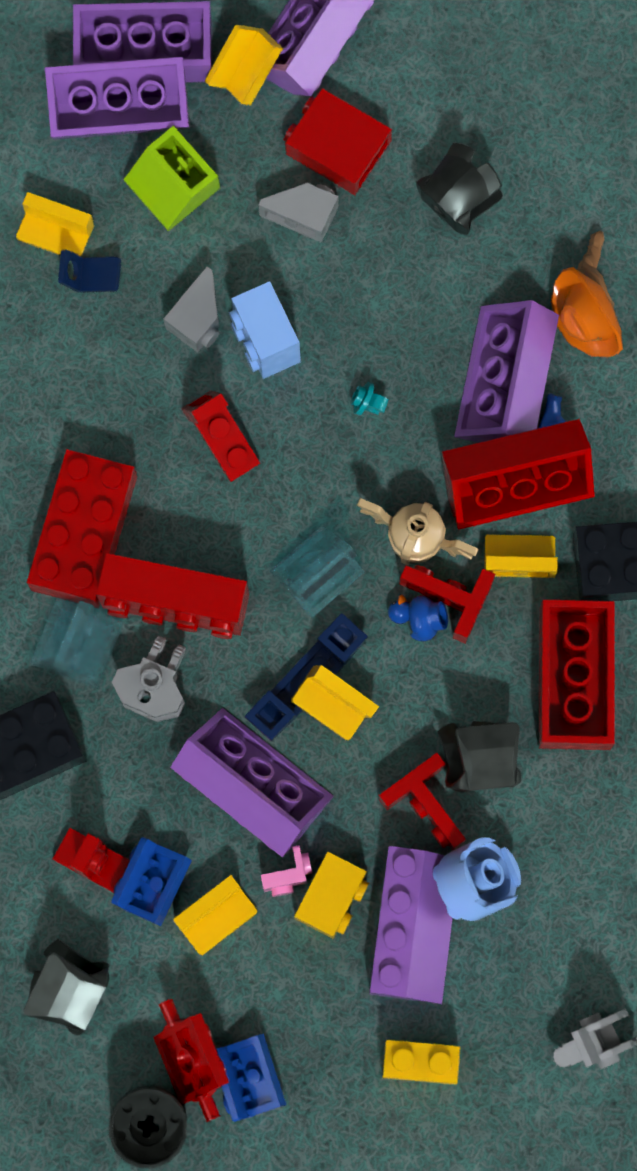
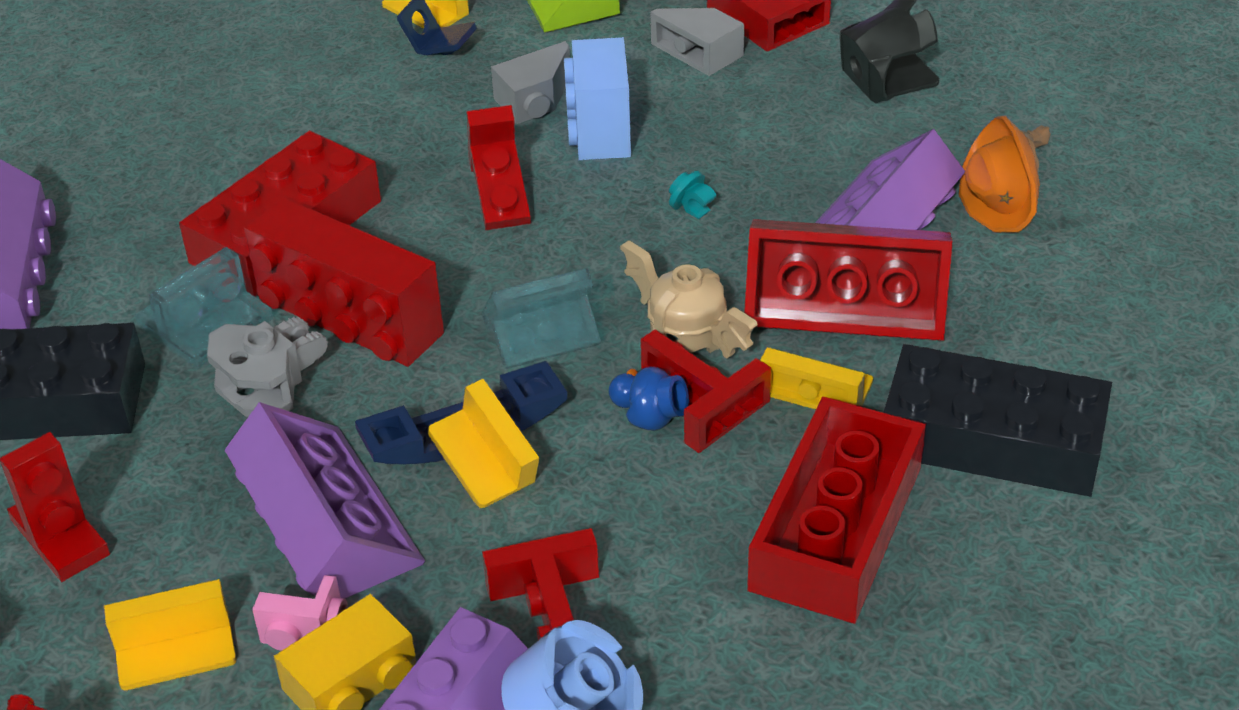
camera: 20 degrees right, 35 degrees down
(150, 881) = (108, 564): blue bracket -> none
(481, 755) = (654, 553): pearl dark grey piece -> none

